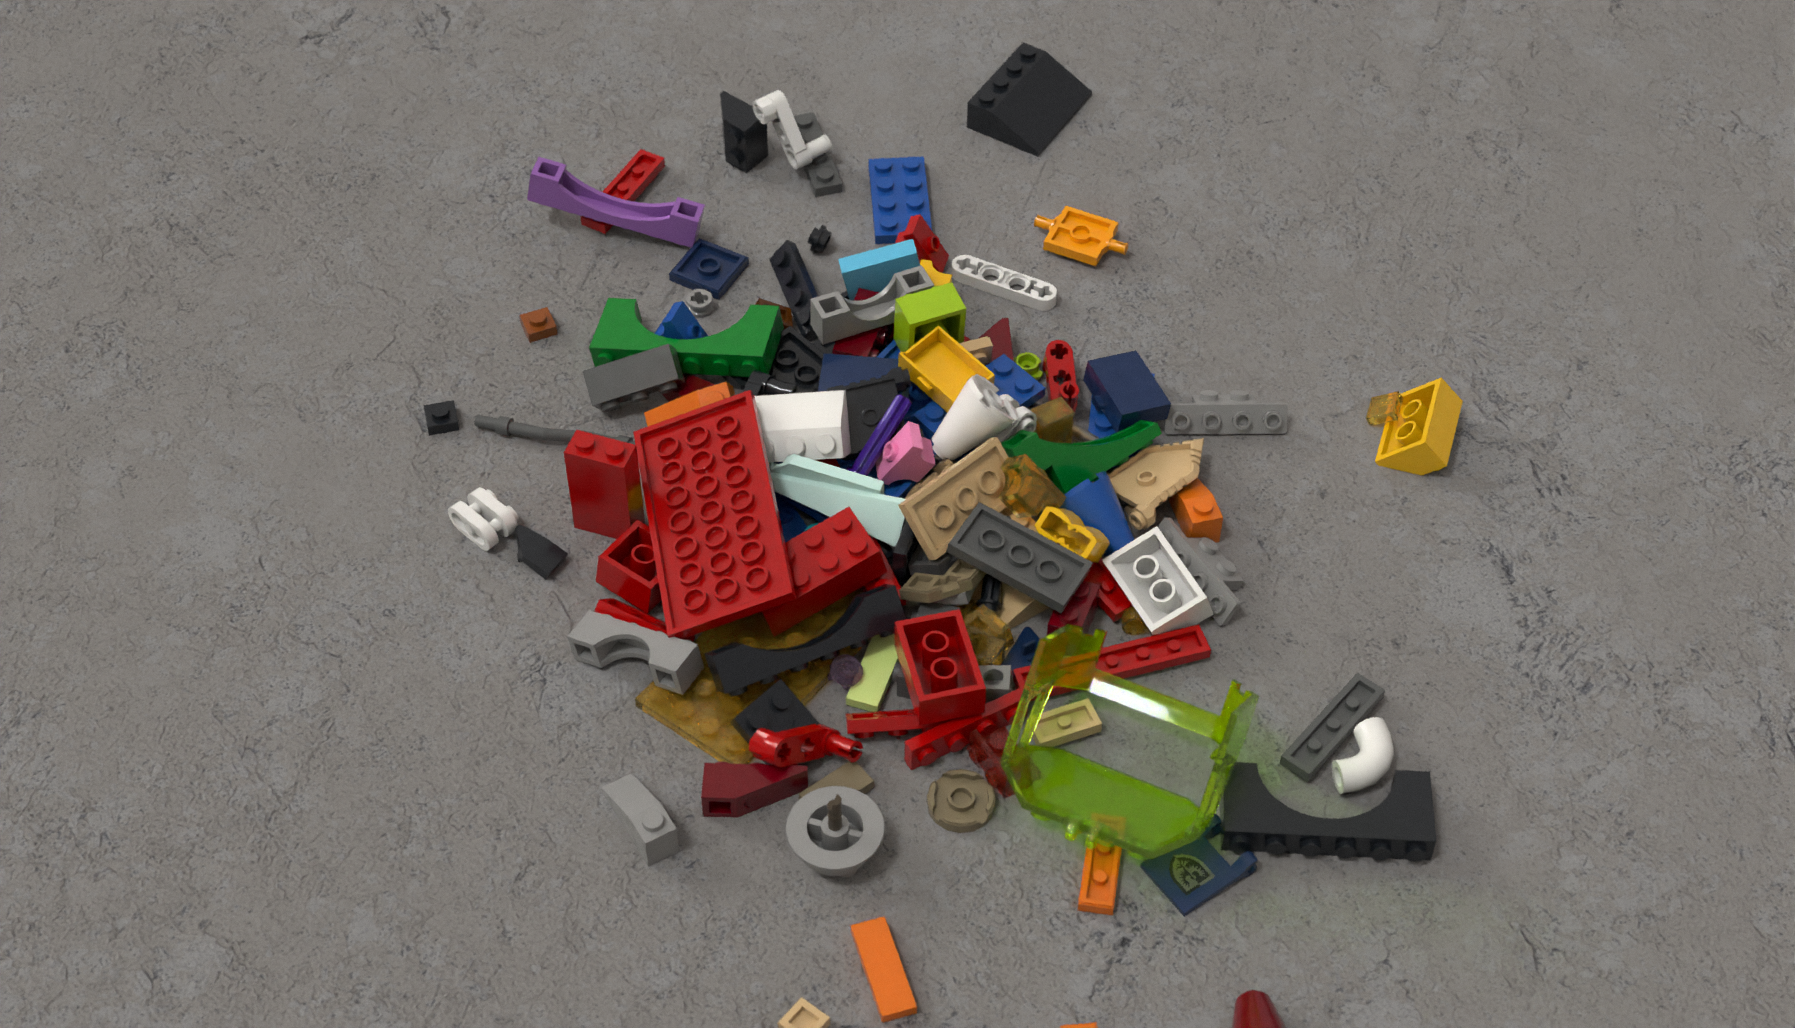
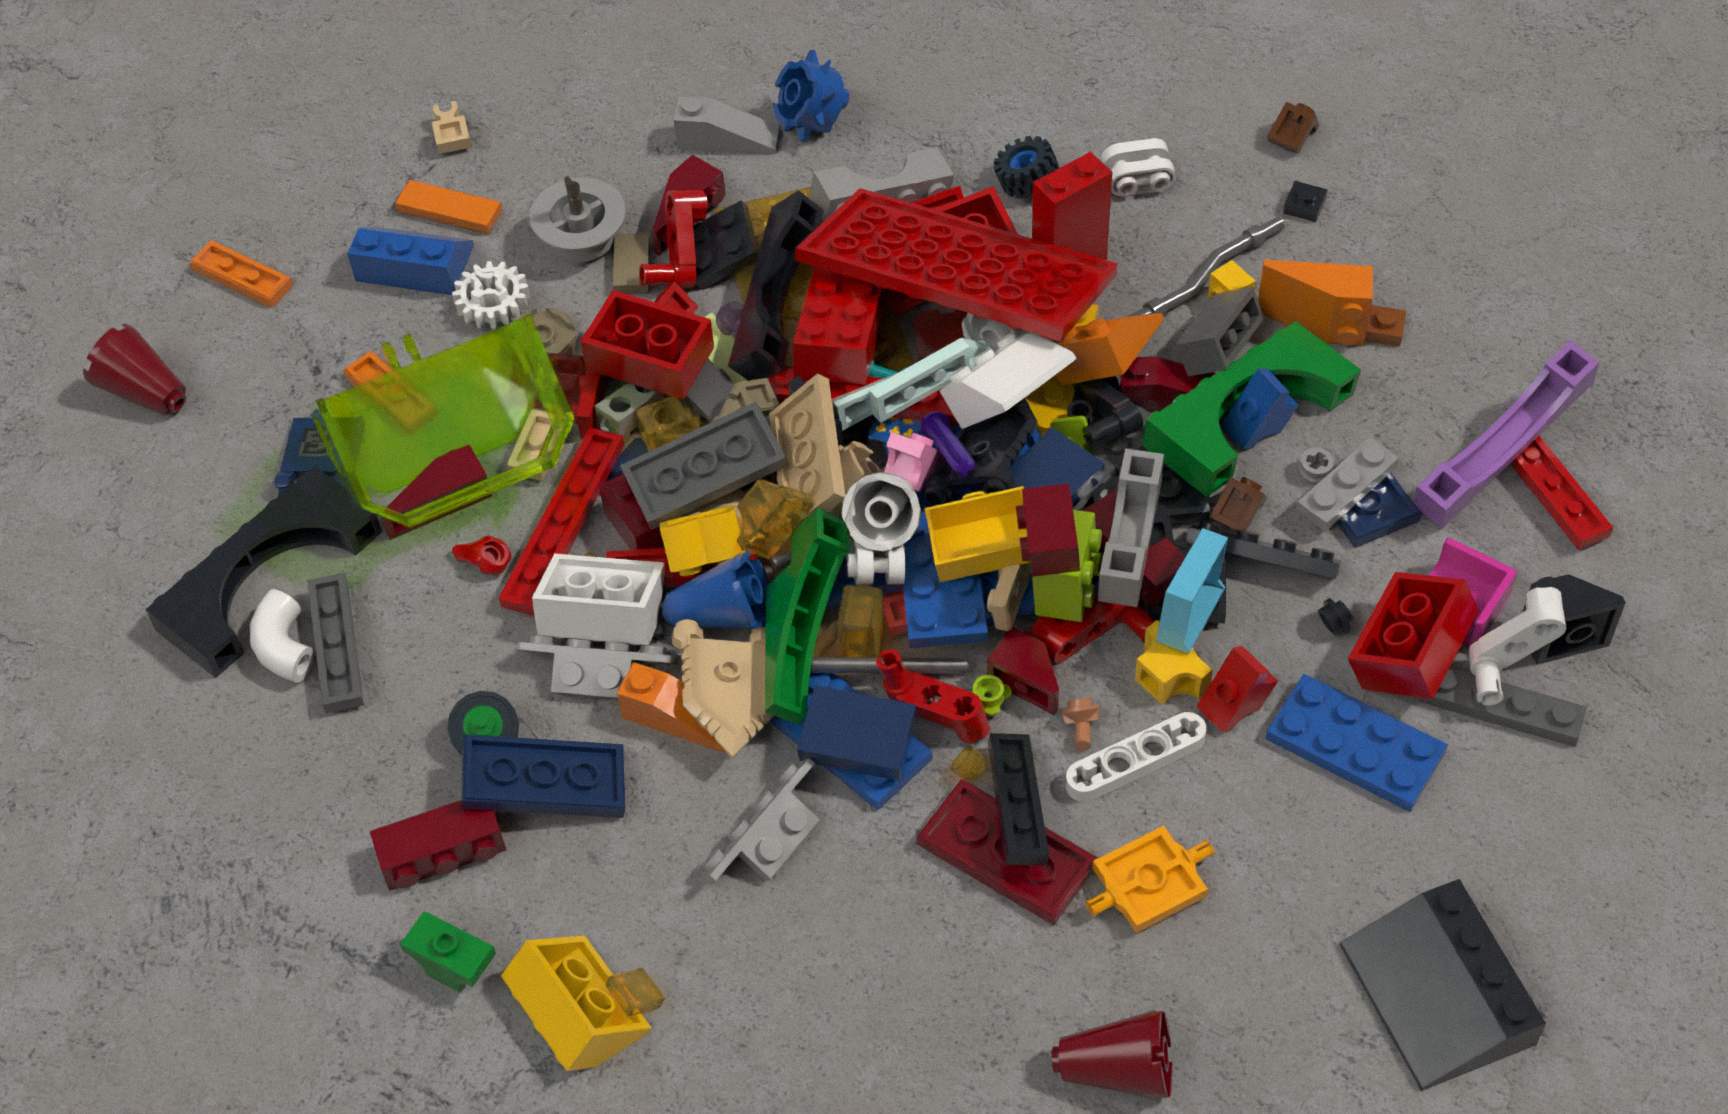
camera: 130 degrees right, 5 degrees up
(366, 450) = (1293, 126): none -> reddish brown bracket
(546, 593) = (1024, 164): none -> black bush
(553, 338) = (1322, 297): none -> orange slope
(571, 754) = (809, 96): none -> blue brick
(573, 408) = (1229, 278): none -> yellow plate
(709, 273) = (1347, 484): none -> light grey plate
(750, 183) = (1486, 577): none -> dark pink panel
(813, 186) = (1413, 635): none -> red brick
(937, 298) = (1050, 530): none -> dark red brick
(961, 947) = (408, 259): none -> blue slope
(972, 860) = (491, 294): none -> white gear
(997, 312) = (1081, 713): none -> nougat plate
(1087, 352) = (969, 764): none -> clear yellow hinge
(1093, 302) = (1018, 799): none -> black plate
(1122, 307) = (969, 838): none -> dark red tile
(1159, 752) = (440, 478): none -> dark red slope
(1182, 686) = (487, 553): none -> red animal
(1202, 186) = (1119, 1056): none -> dark red cone
(1307, 591) = (482, 714): none -> black wheel
(1310, 530) = (542, 776): none -> dark blue tile
(1402, 561) = (435, 843): none -> dark red brick
(1461, 495) = (447, 952): none -> green brick

